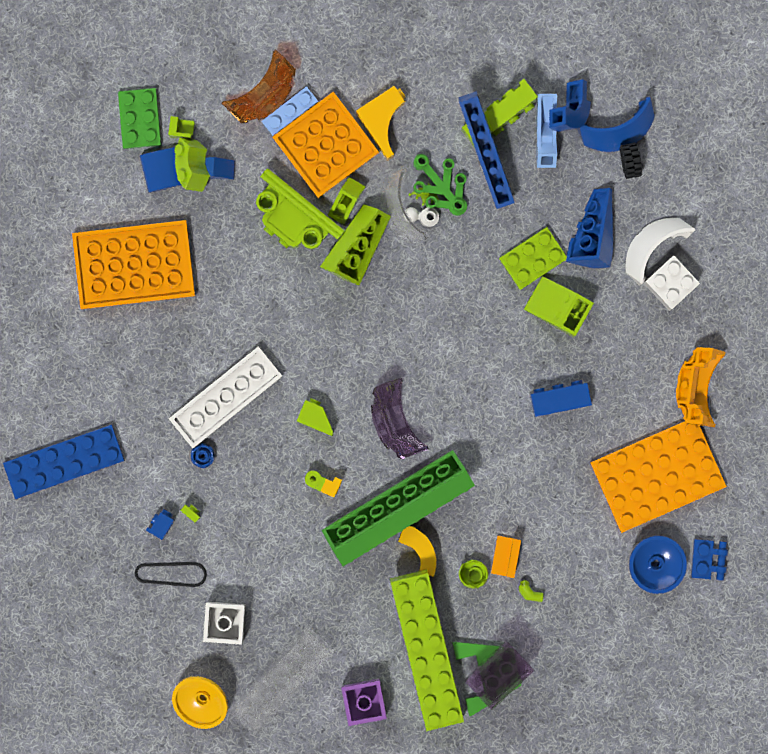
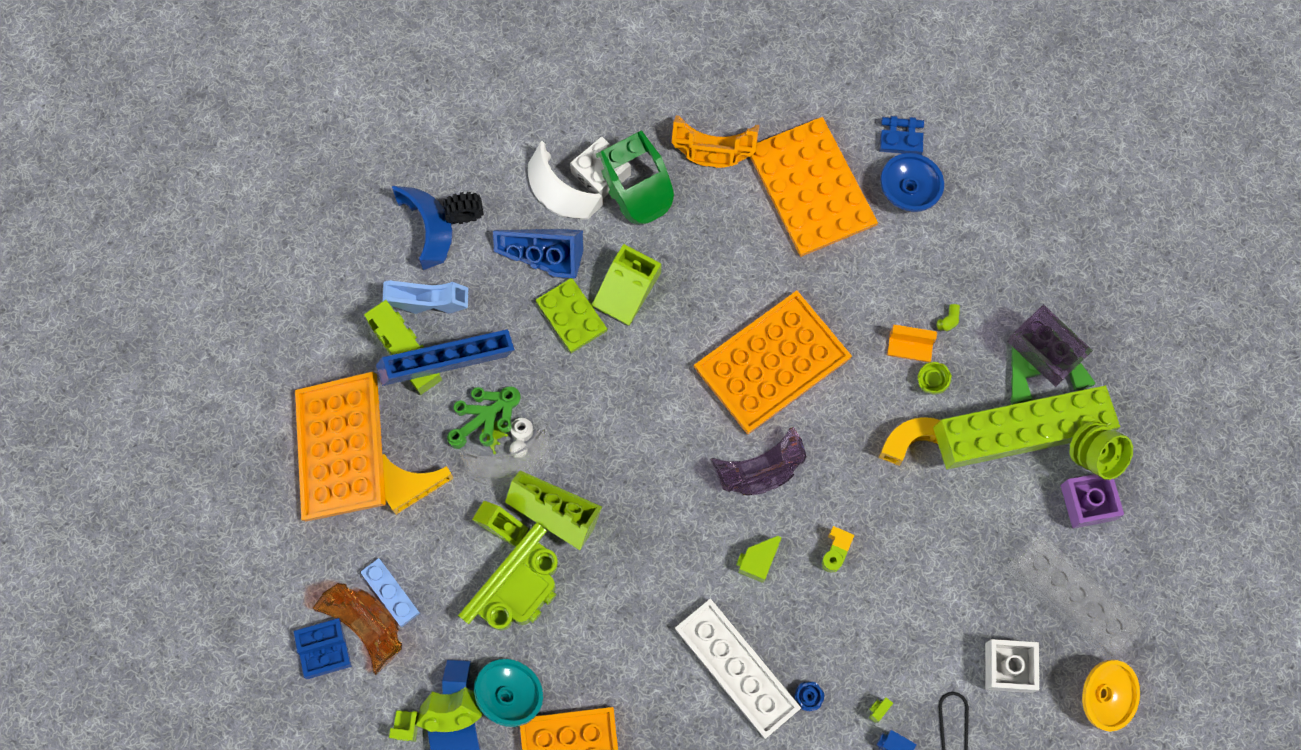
camera: 90 degrees left, 15 degrees down
(213, 218) = (514, 683): none -> teal dish
(243, 58) = (322, 648): none -> blue slope
(325, 145) = (432, 549): light orange plate -> none
(398, 508) = (864, 460): bright green brick -> none
(402, 709) = (1101, 450): none -> lime wheel
(411, 63) = (339, 447): none -> light orange plate
(489, 434) = (772, 362): none -> light orange plate
(560, 398) = (731, 285): blue brick -> none
(576, 110) = (405, 265): blue arch -> none
(642, 327) = (646, 199): none -> green slope

